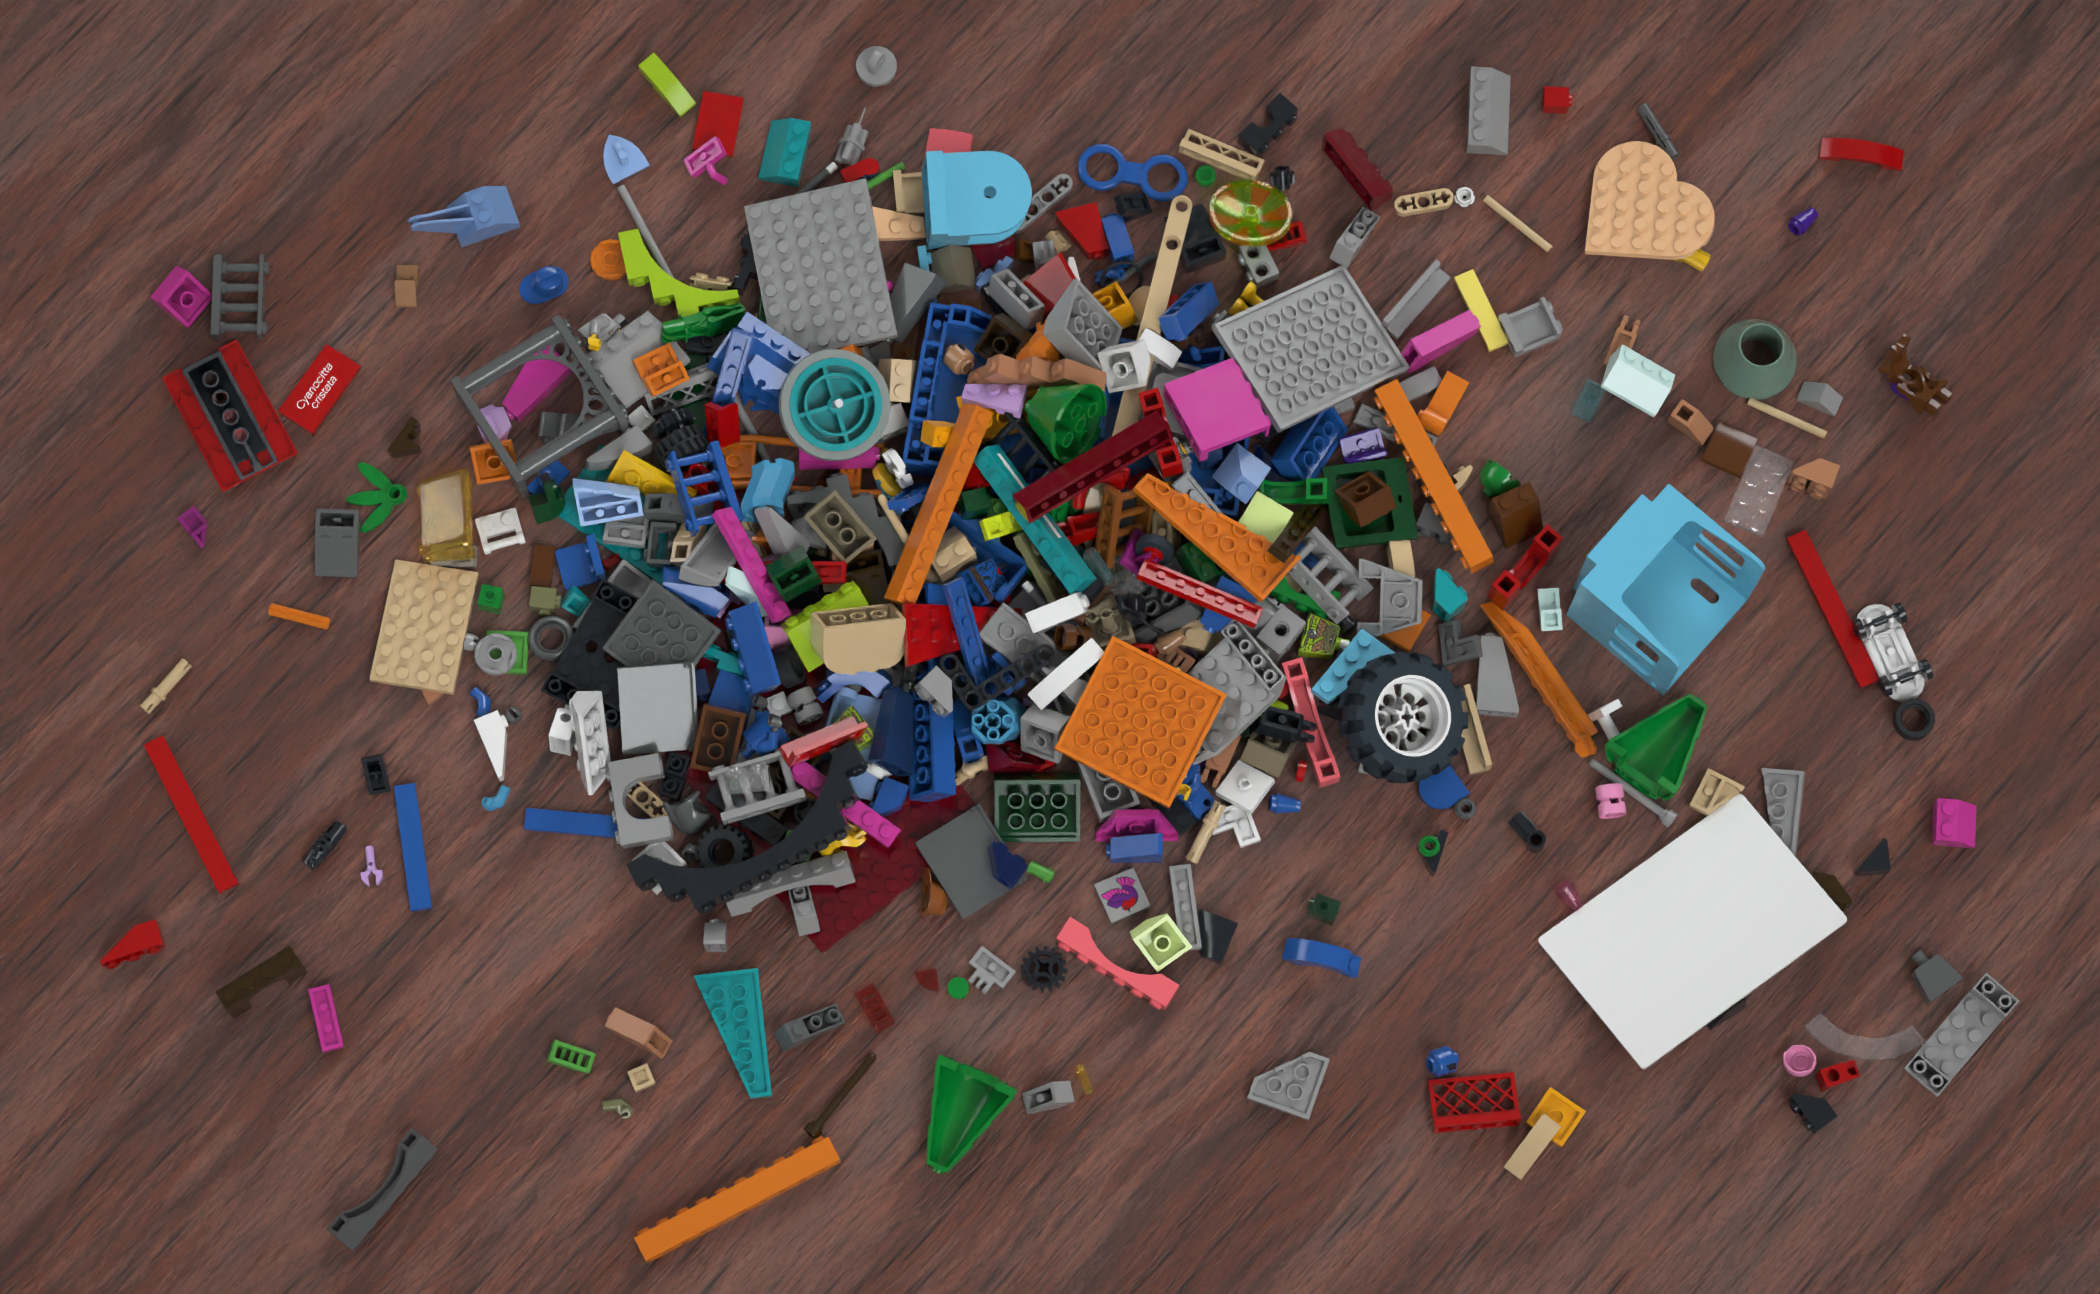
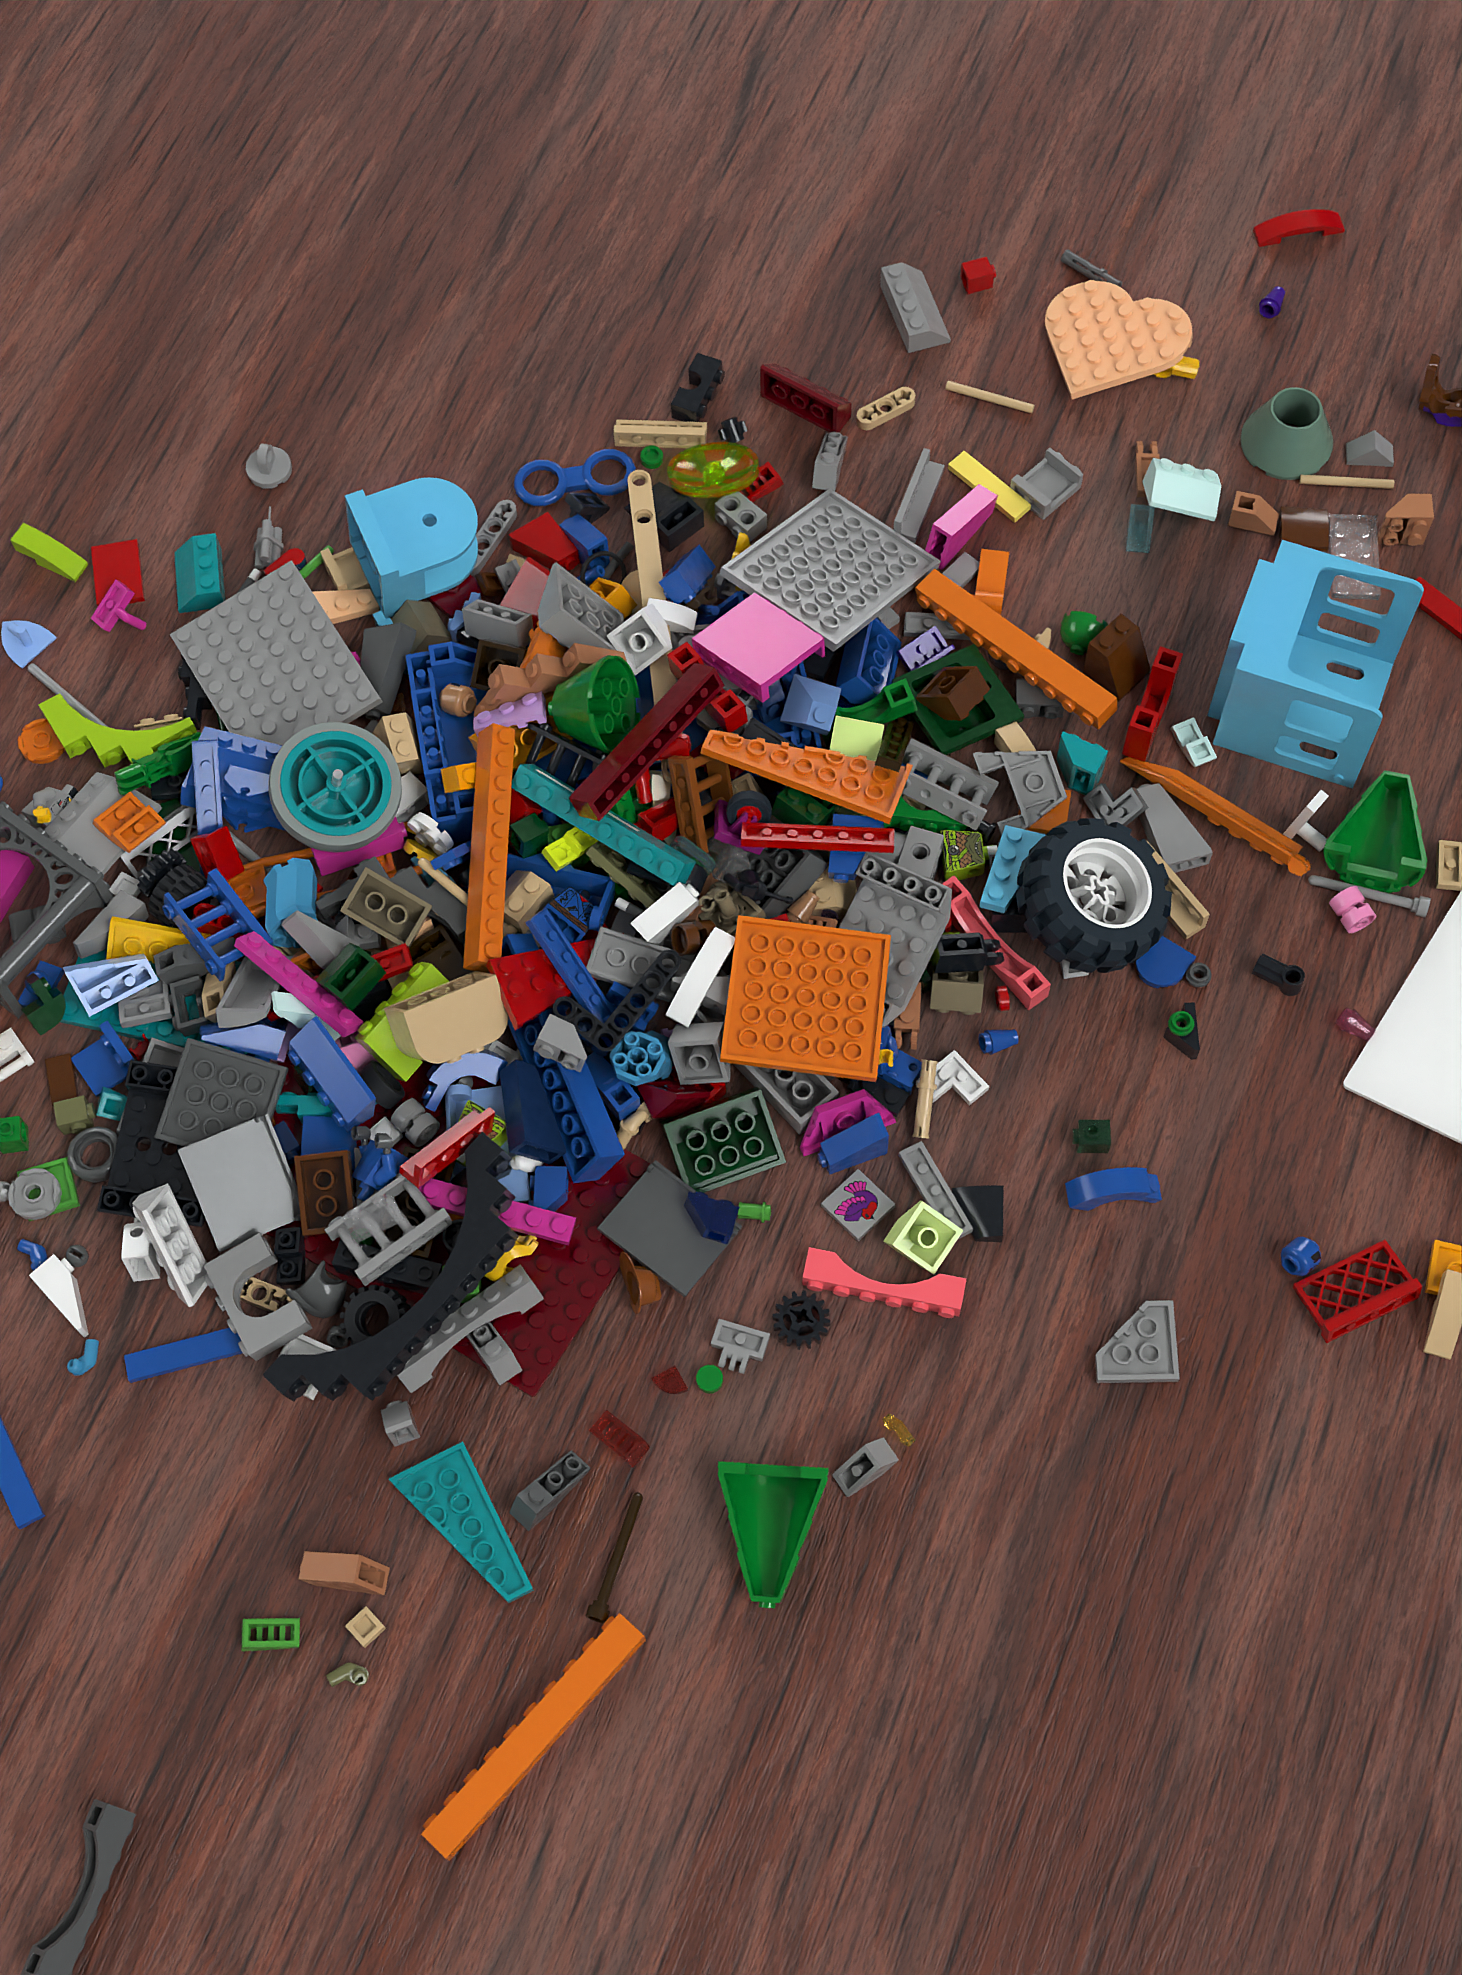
camera: 15 degrees left, 10 degrees down
(909, 674) = (521, 1041): pearl dark grey bar -> none
(1245, 787) = (947, 1036): white plate -> none
(1464, 191) = (925, 389): white plate -> none

